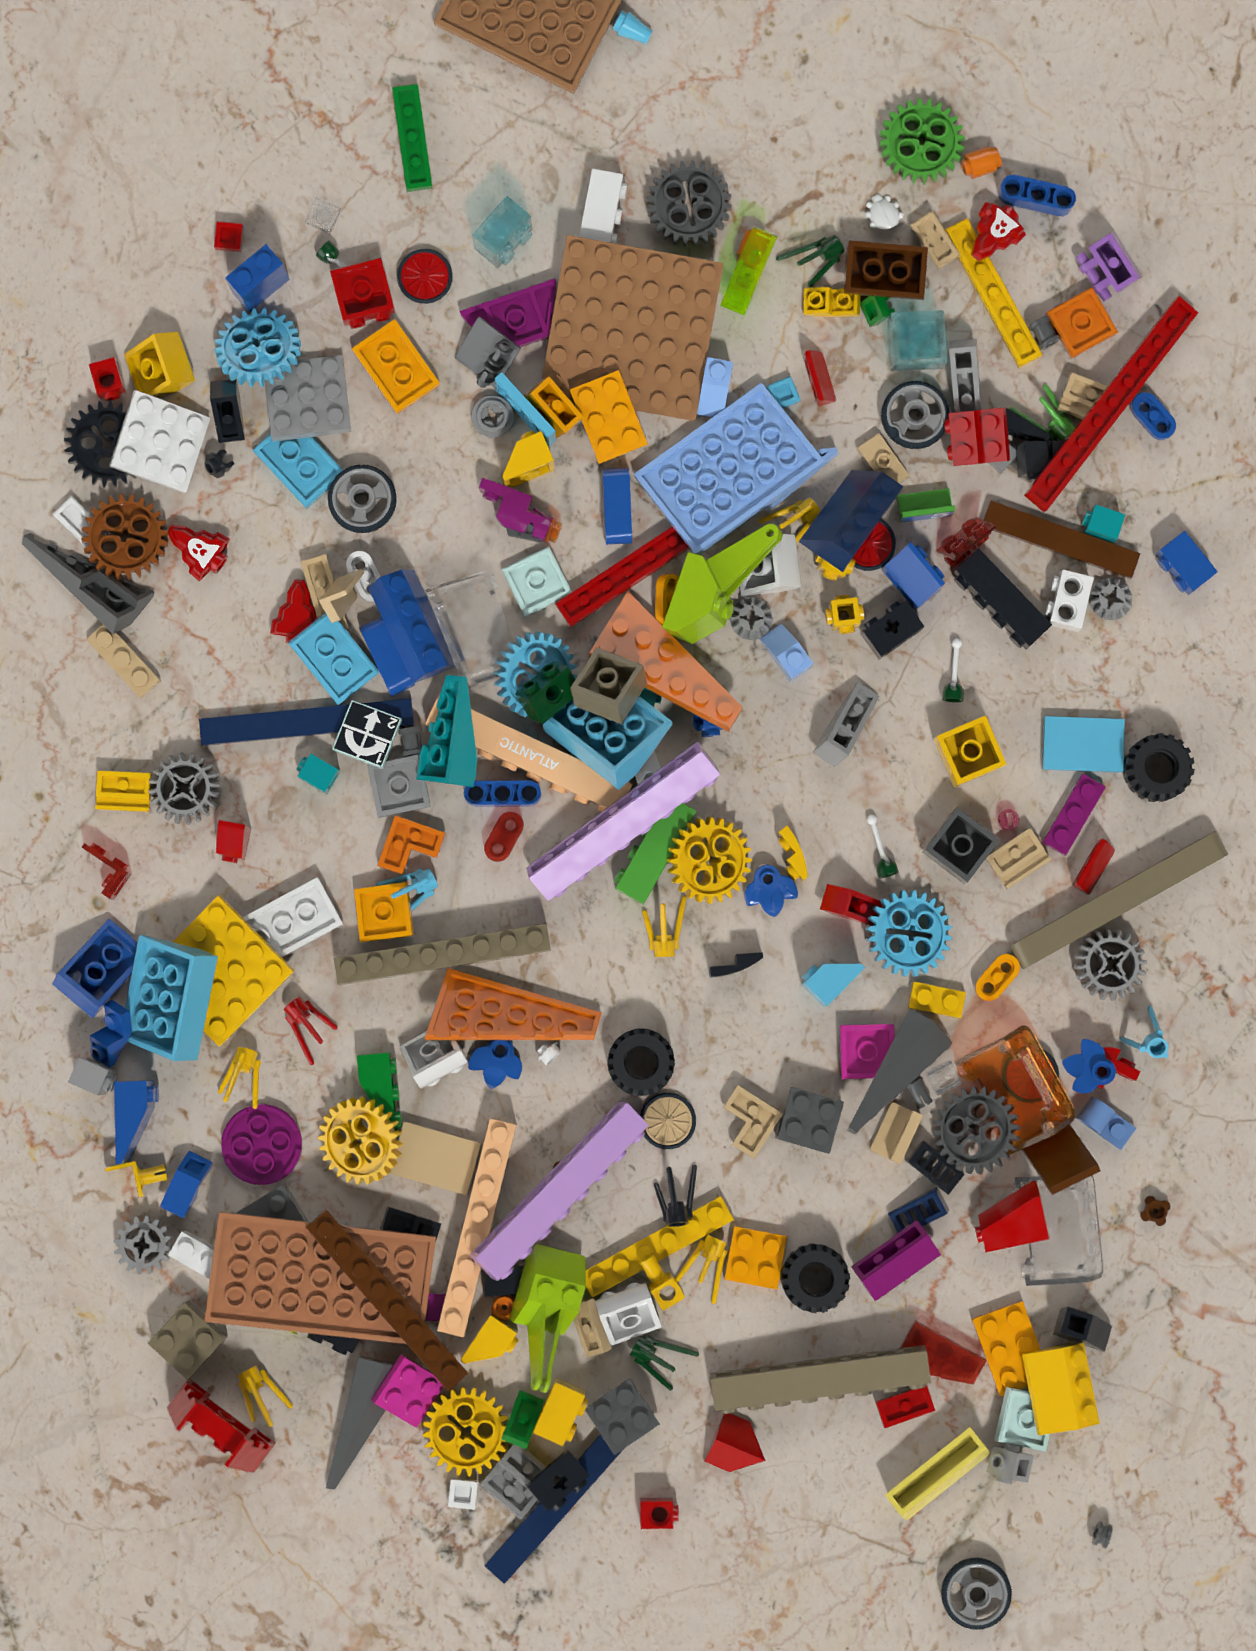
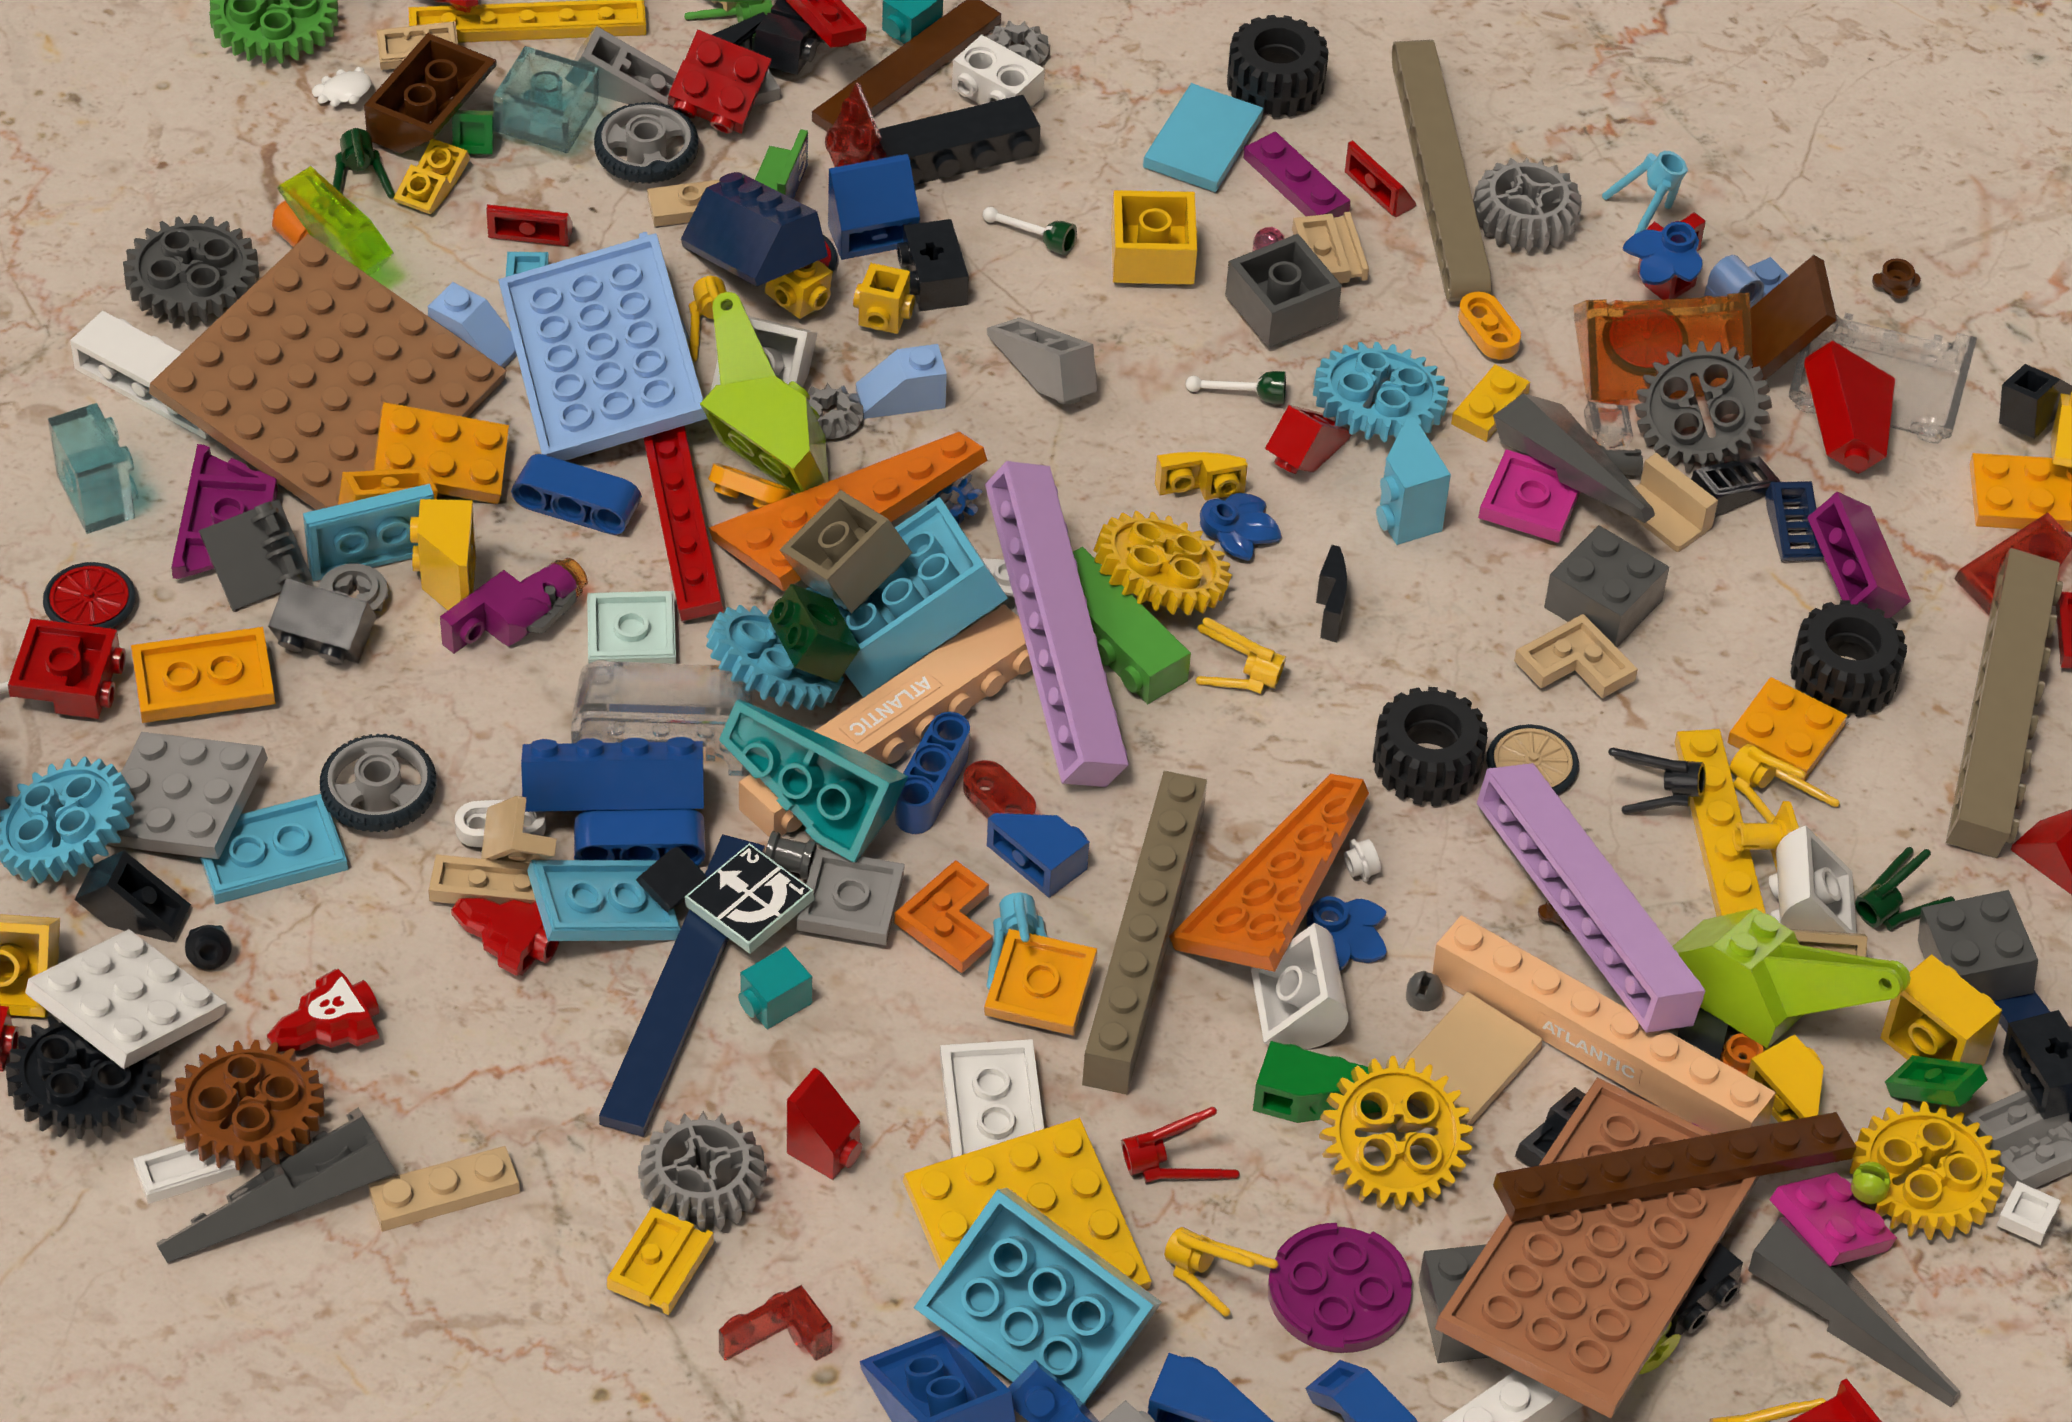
camera: 65 degrees left, 35 degrees down
(360, 687) = (671, 878): none -> black slope
(440, 1404) = (1870, 1182): none -> lime hinge
(455, 413) = (321, 622): none -> brick
(475, 876) = (1039, 848): none -> blue slope
(475, 1113) = (1433, 995): none -> dark grey hinge

